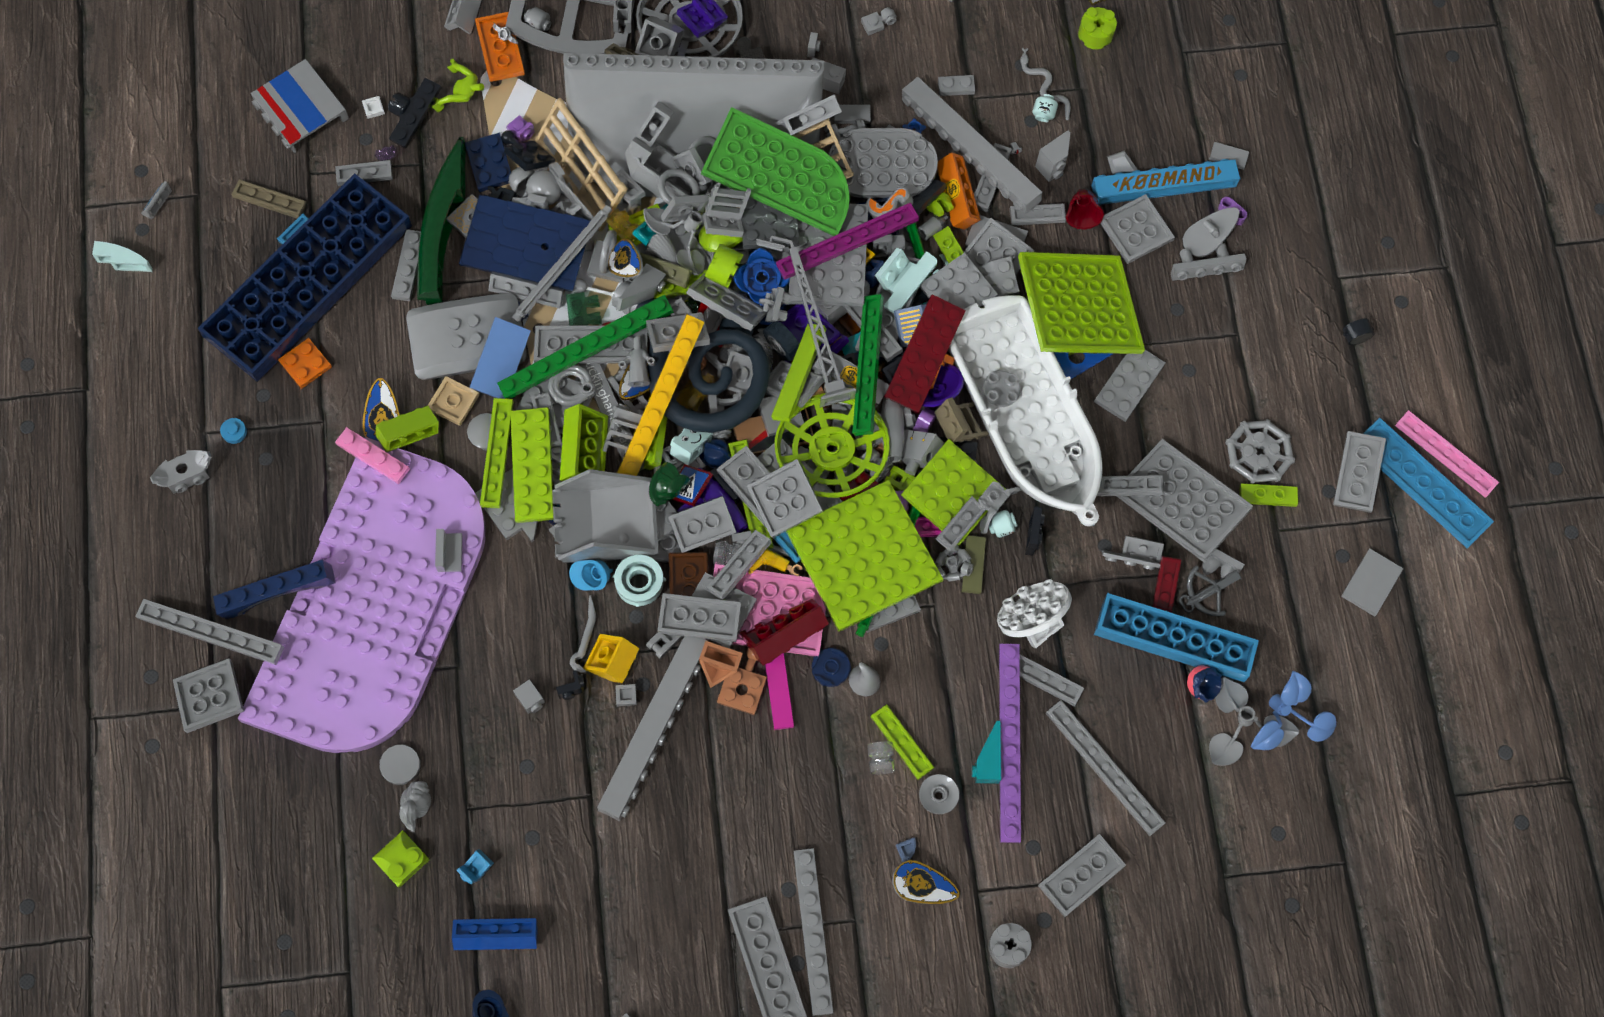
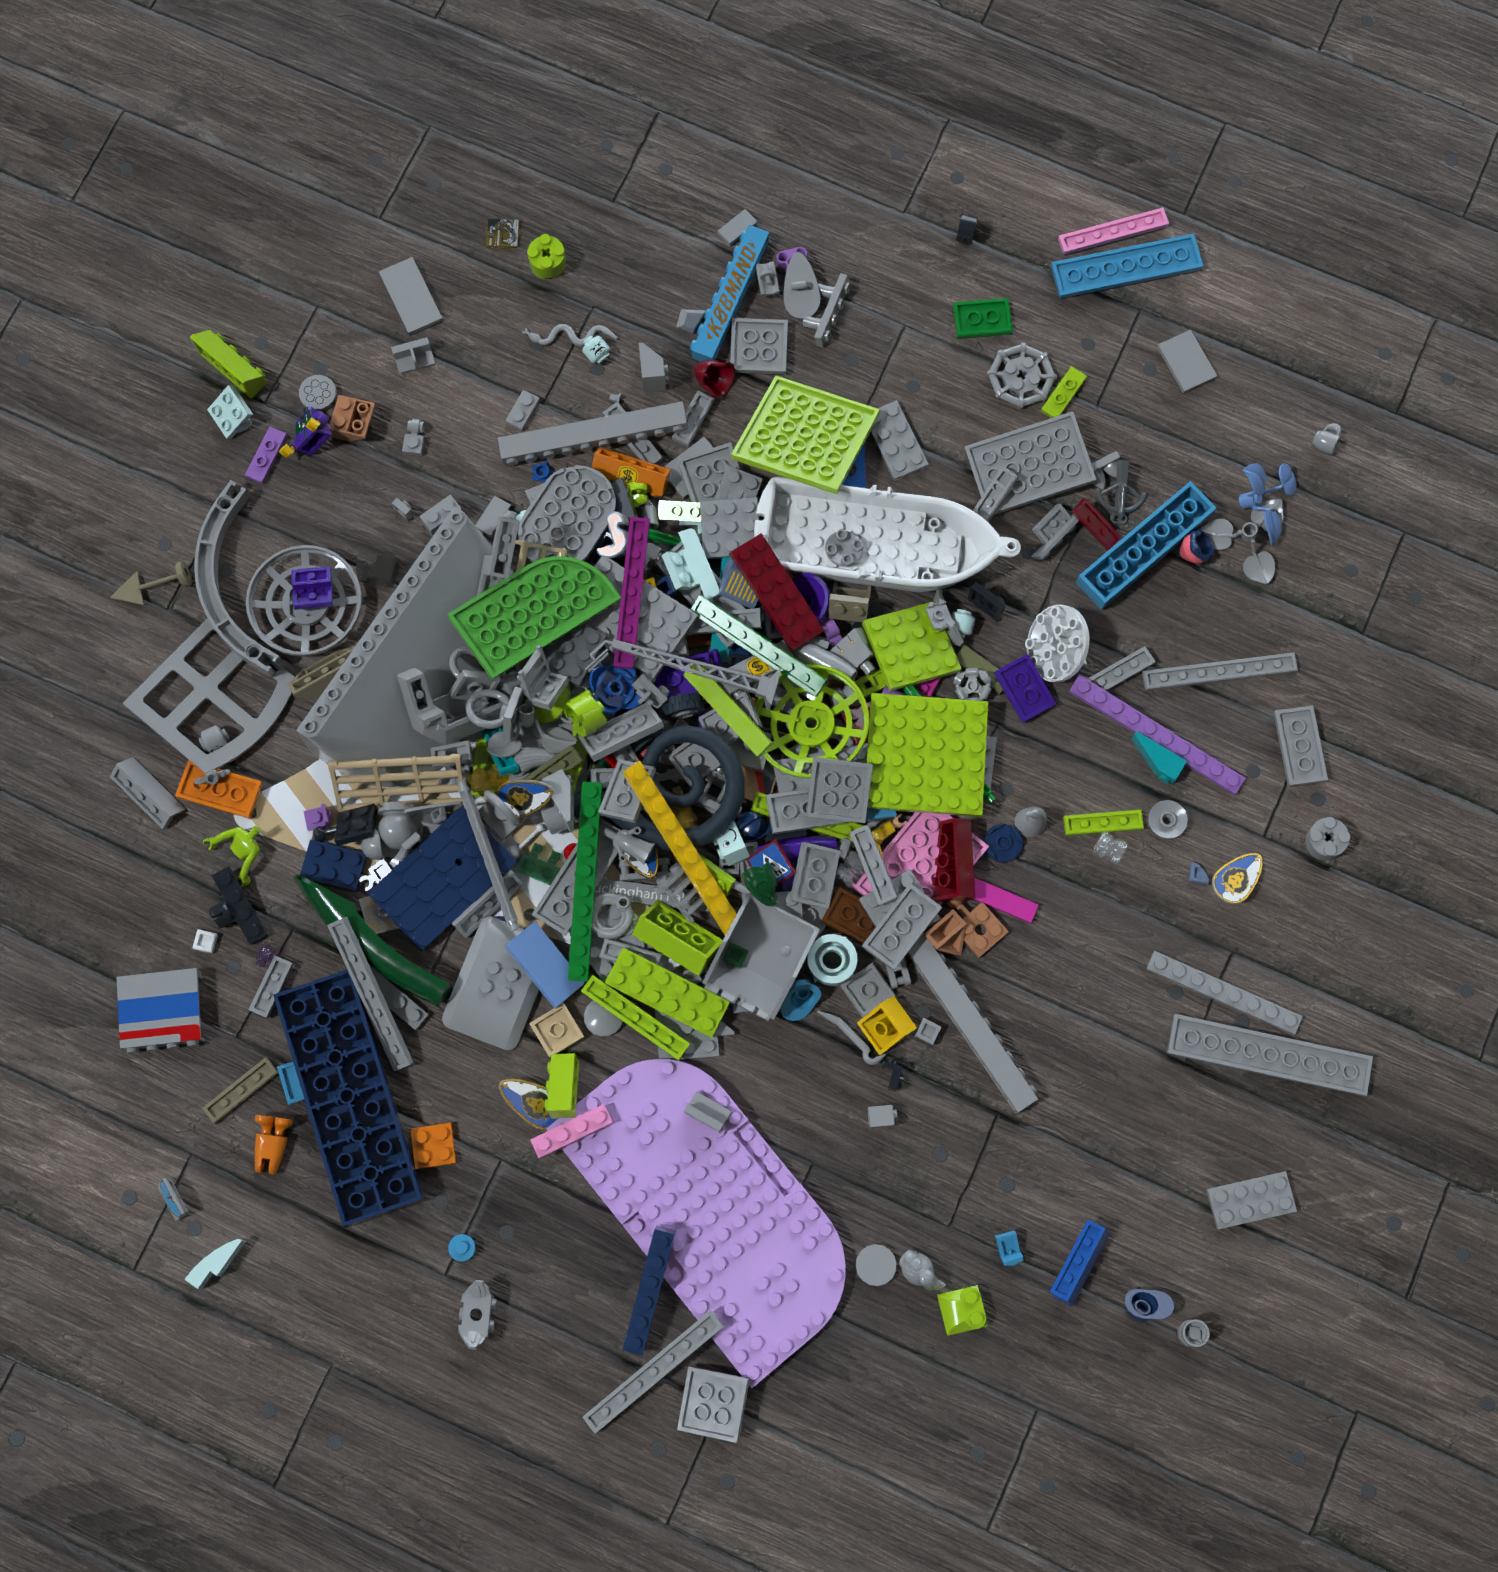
camera: 55 degrees left, 5 degrees up
(235, 243) = (268, 1145): none -> orange piece
(397, 242) = (370, 993): none -> light grey plate
(595, 500) = (735, 955): none -> dark green tile
(634, 625) = (867, 990): none -> light grey tile
(659, 38) = (315, 640): light grey slope -> none
(960, 524) = (946, 657): light grey tile -> none
(978, 607) = (1024, 688): none -> dark purple plate
(1198, 201) = (767, 279): none -> light grey hips
(1289, 391) = (982, 318): none -> green tile
(1359, 471) = (1089, 308): light grey plate -> none
(1383, 744) = (1327, 441): none -> light grey piece

